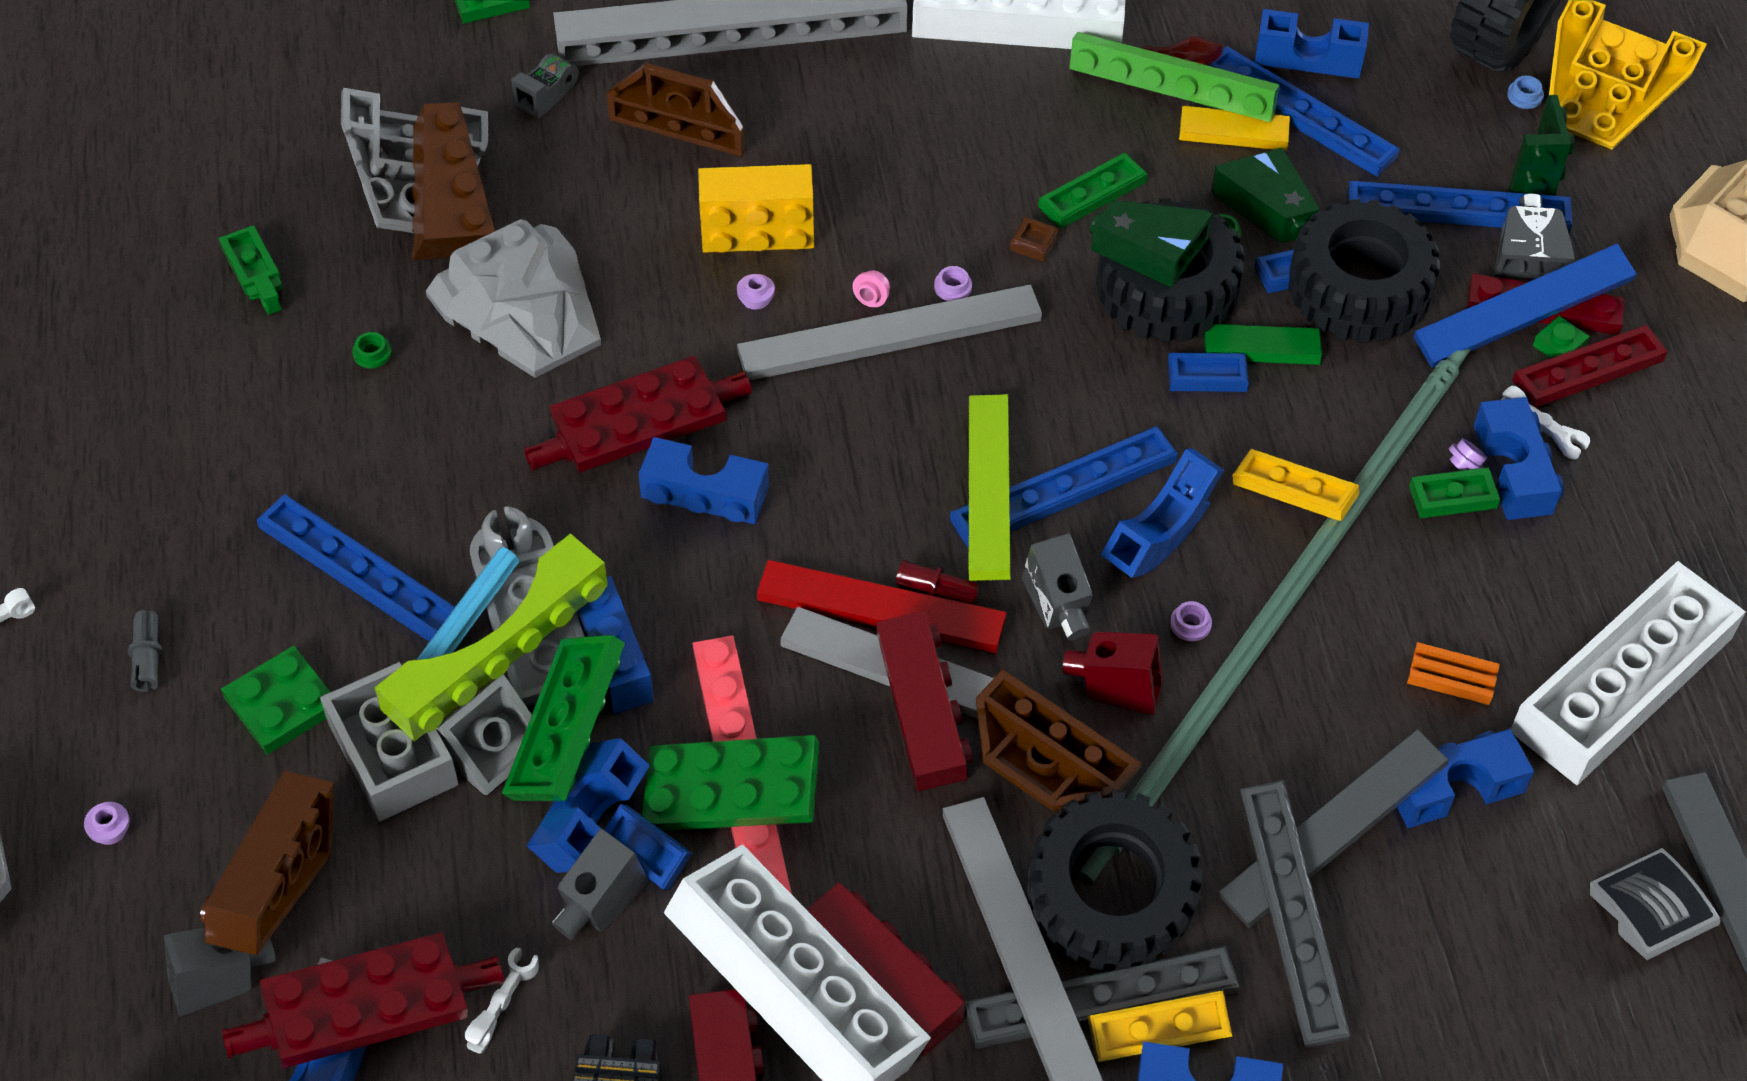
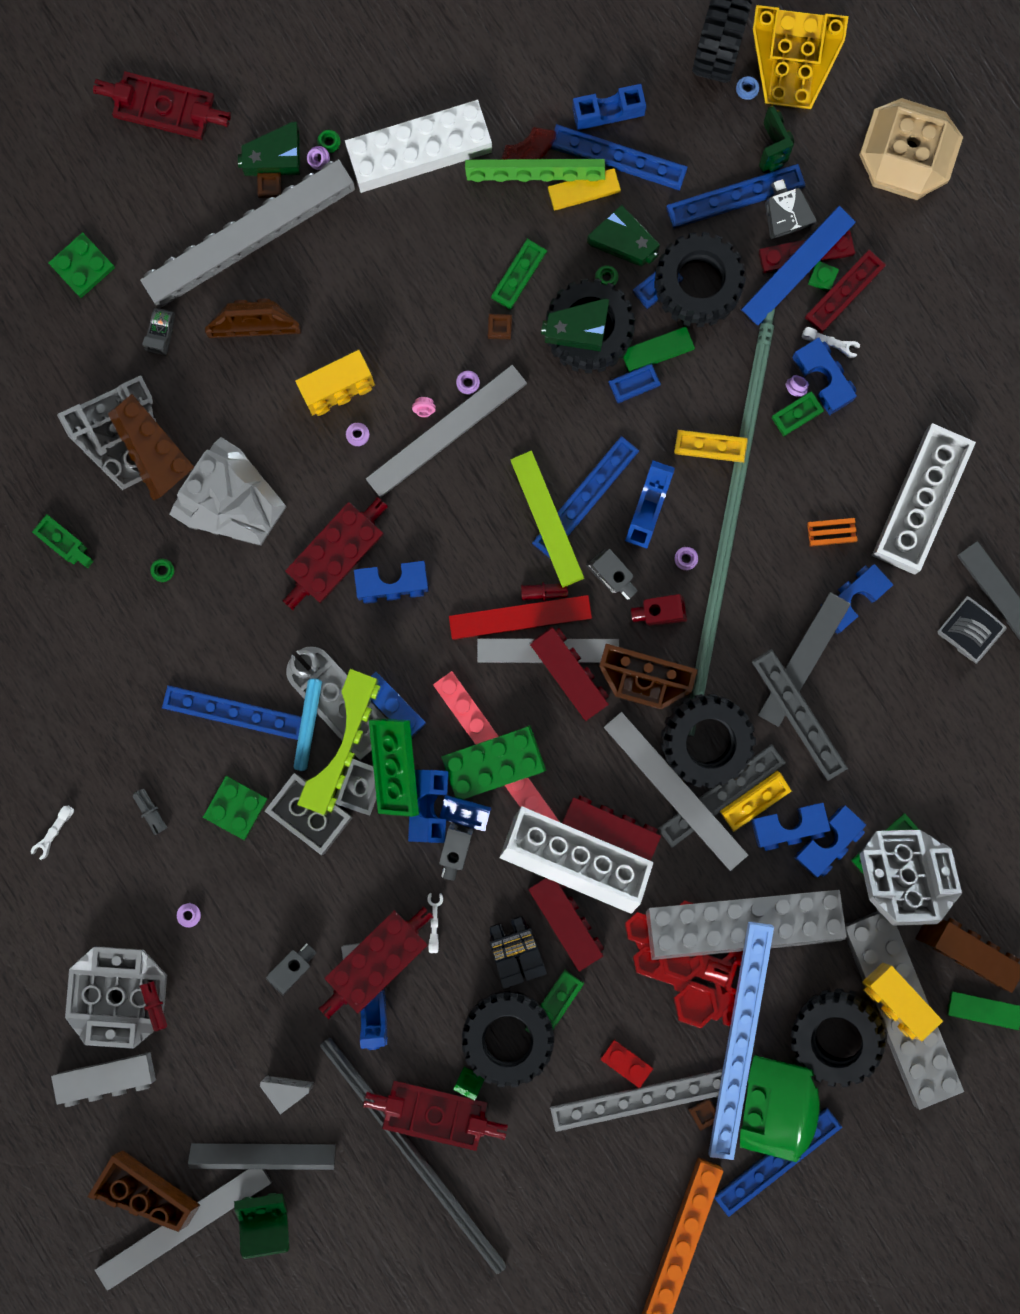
camera: 20 degrees left, 30 degrees up
(272, 864) = (294, 916): reddish brown wedge -> none

